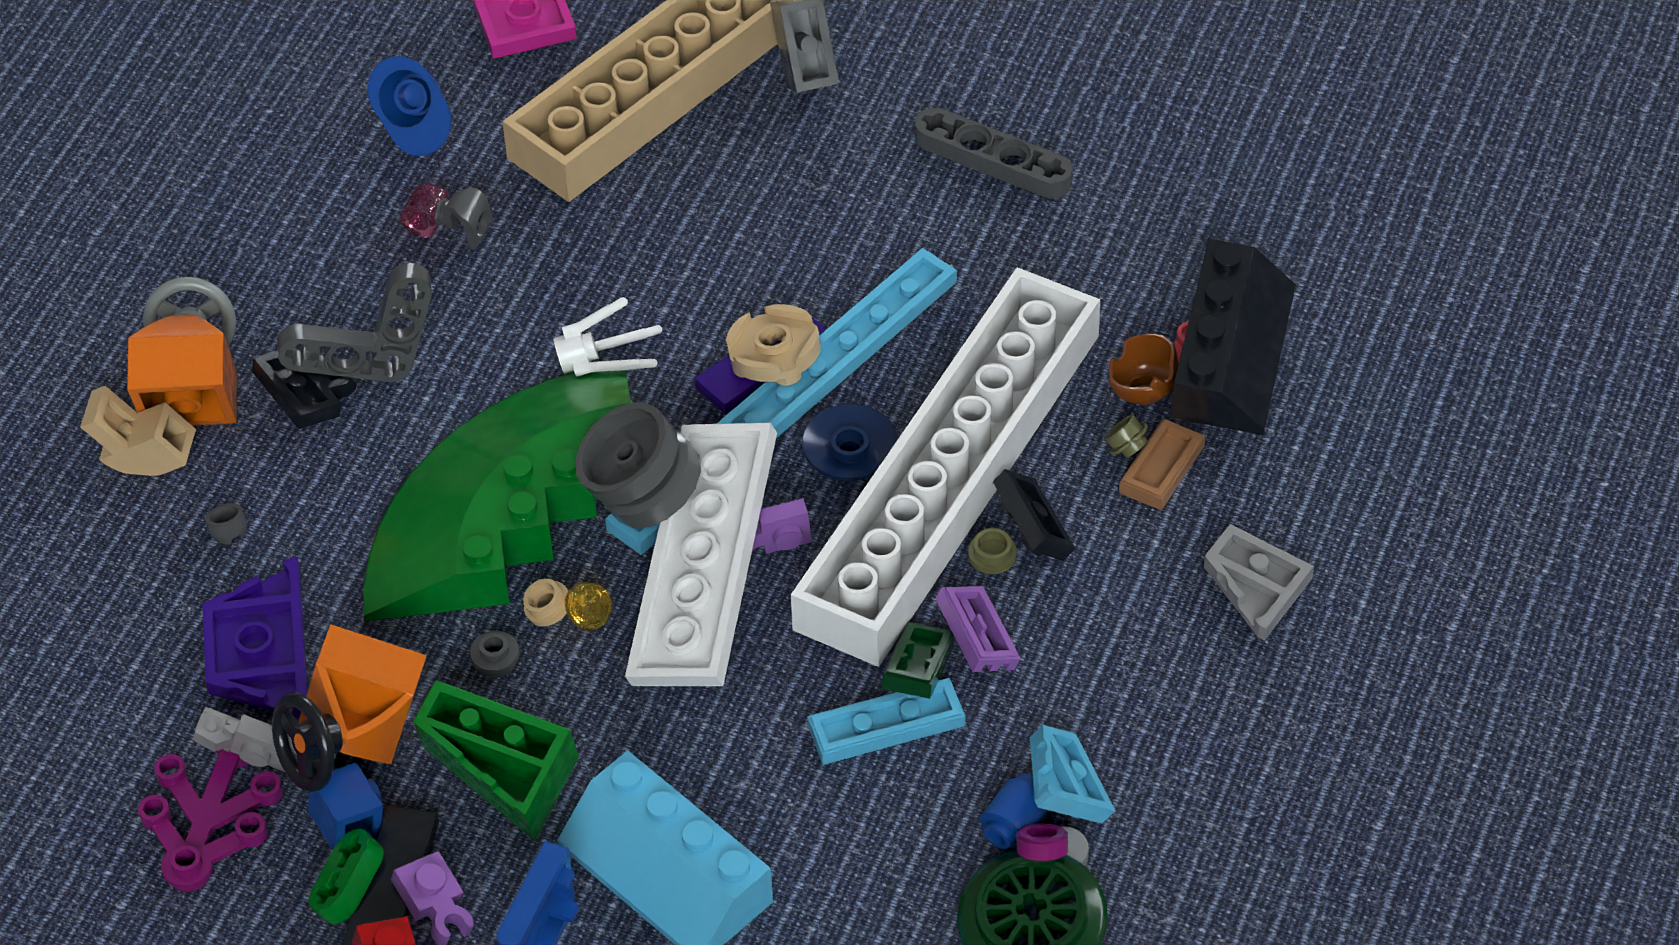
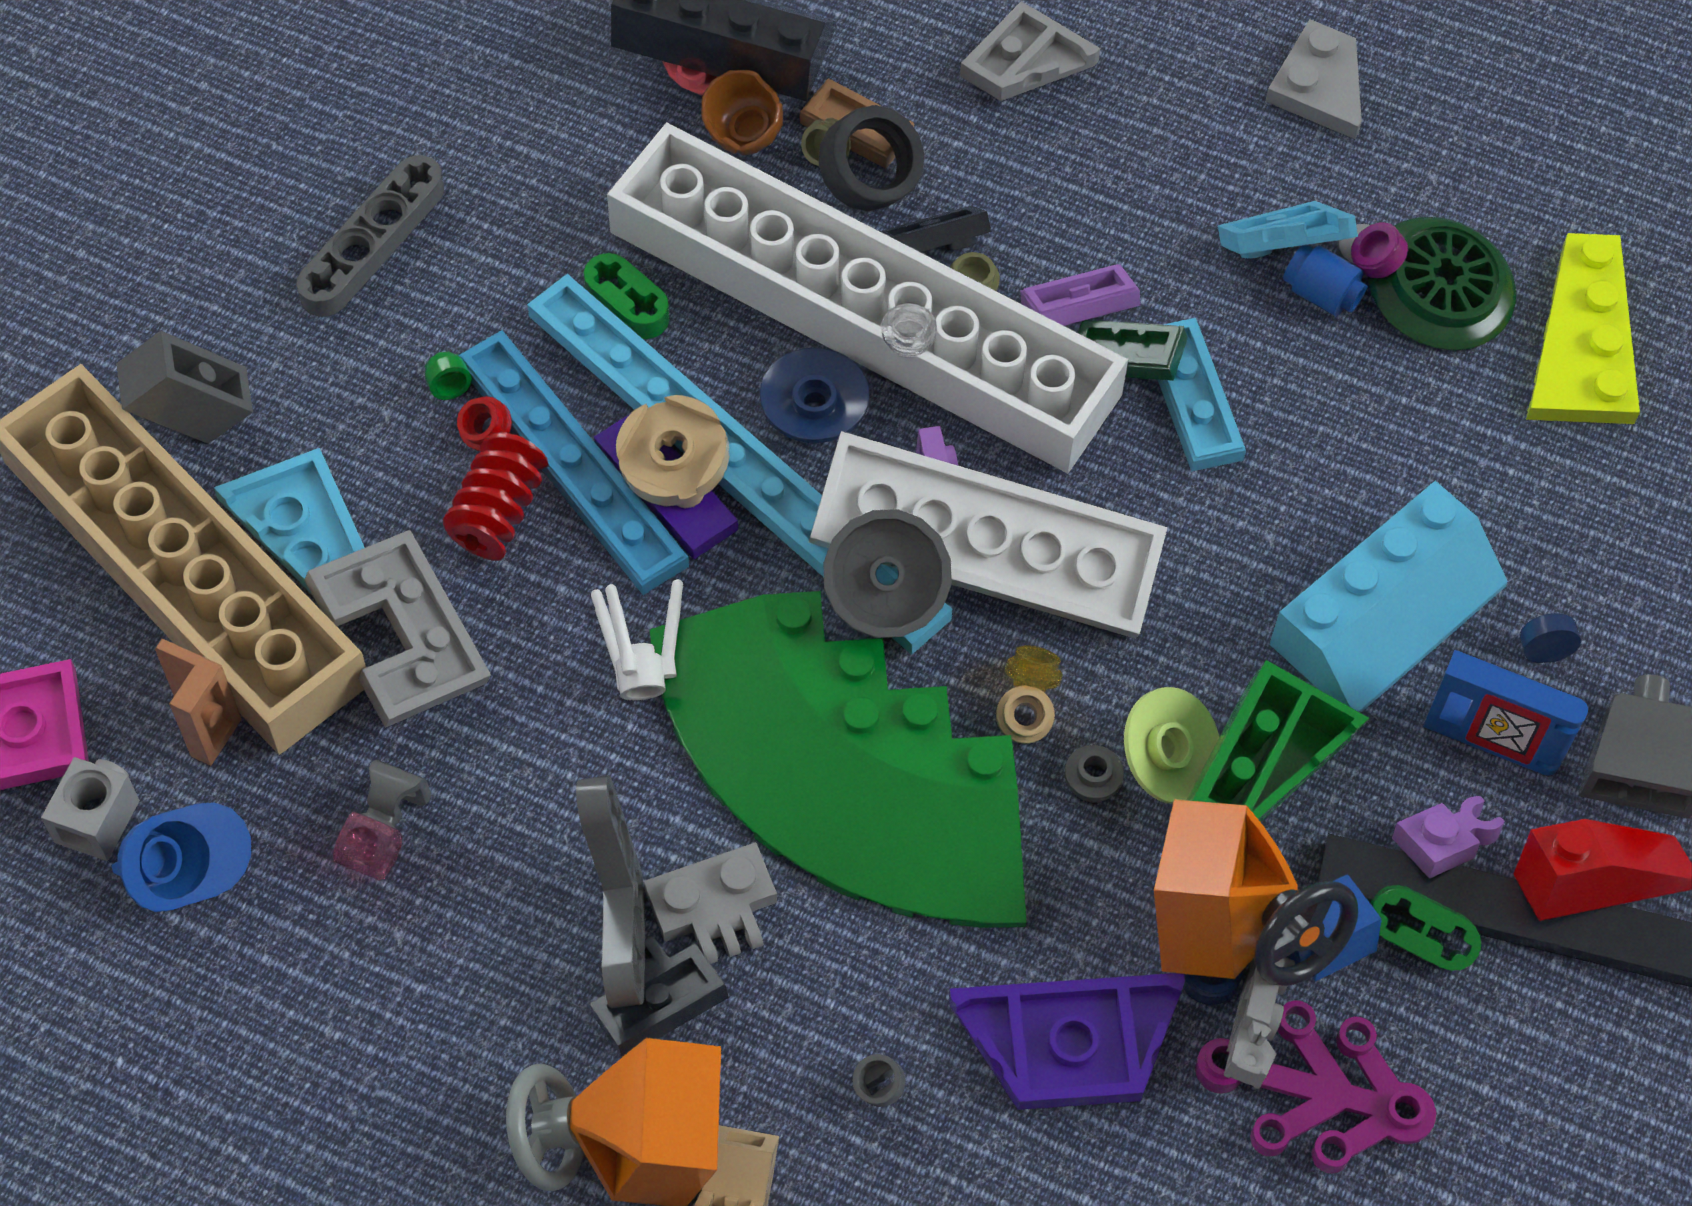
camera: 90 degrees left, 10 degrees up
(382, 420) = (713, 900): none -> light grey hinge
(456, 56) = (97, 829): none -> light grey brick
(514, 668) = (1187, 737): none -> yellowish green dish
(523, 79) = (200, 700): none -> nougat panel
(587, 231) = (439, 652): none -> light grey plate
(705, 145) = (294, 512): none -> medium azure wing
(729, 247) = (494, 495): none -> red piece
(801, 286) = (577, 465): none -> dark azure tile
(806, 237) = (475, 413): none -> red plate
(854, 211) = (447, 375): none -> green hinge
(885, 468) = (909, 329): none -> clear plate
(943, 315) = (633, 289): none -> green beam
(1074, 436) = (901, 137): none -> black tyre
(1273, 819) = (1321, 80): none -> light grey wing

